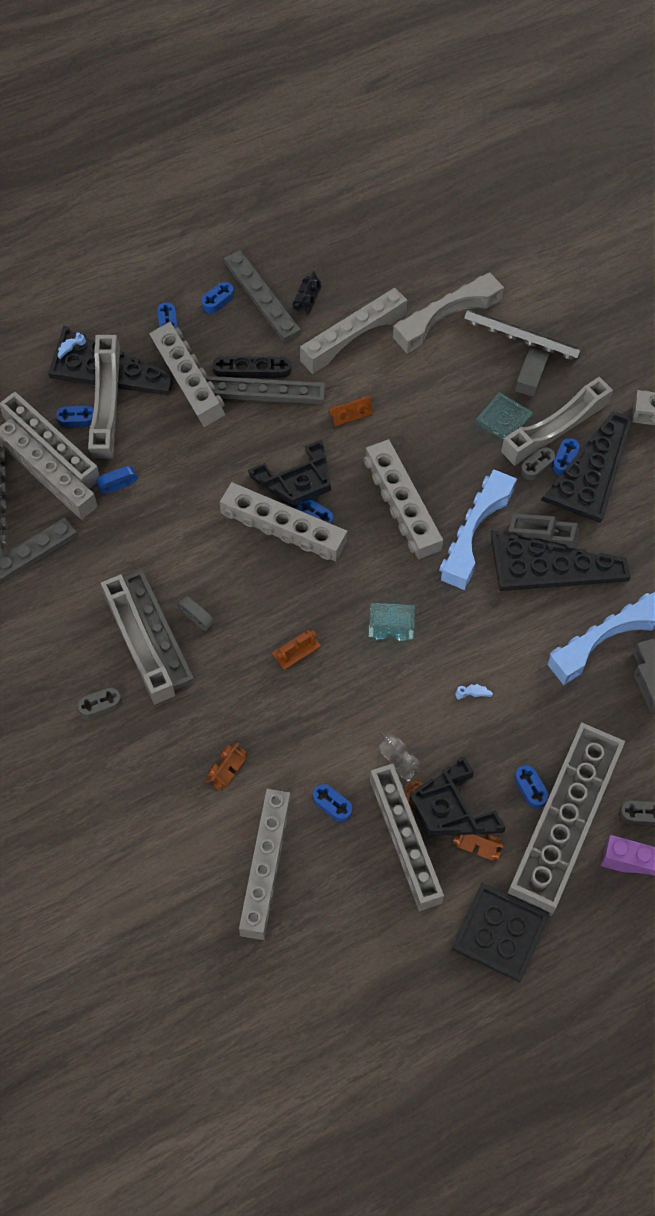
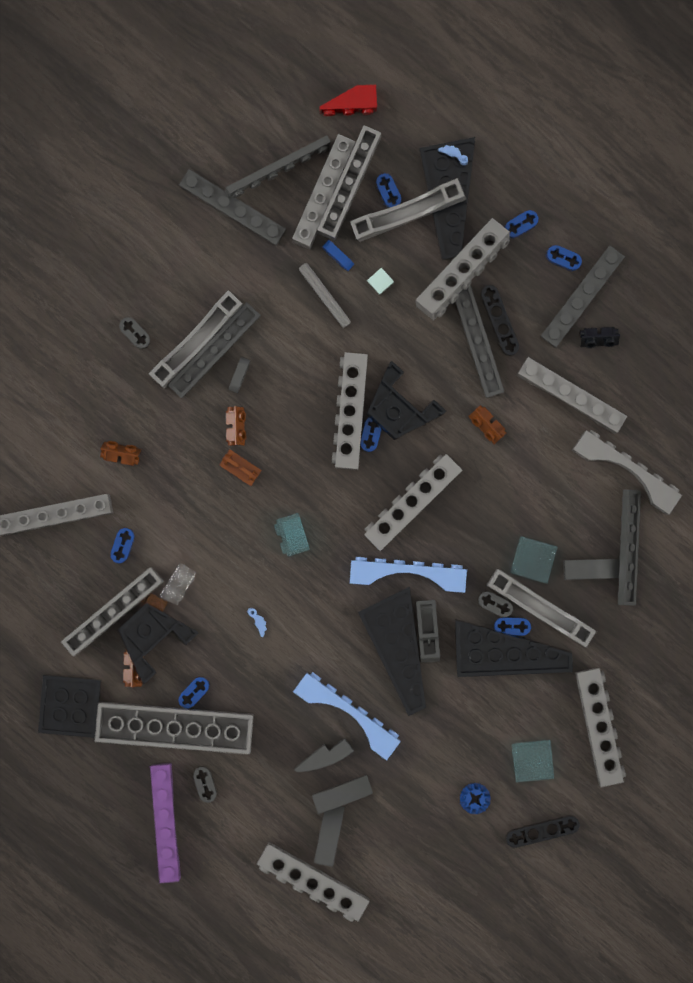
camera: 70 degrees right, 25 degrees up
(151, 507) = (324, 294): none -> light grey axle
(162, 454) = (380, 281): none -> light aqua tile
(257, 642) = (237, 435): none -> dark orange hinge

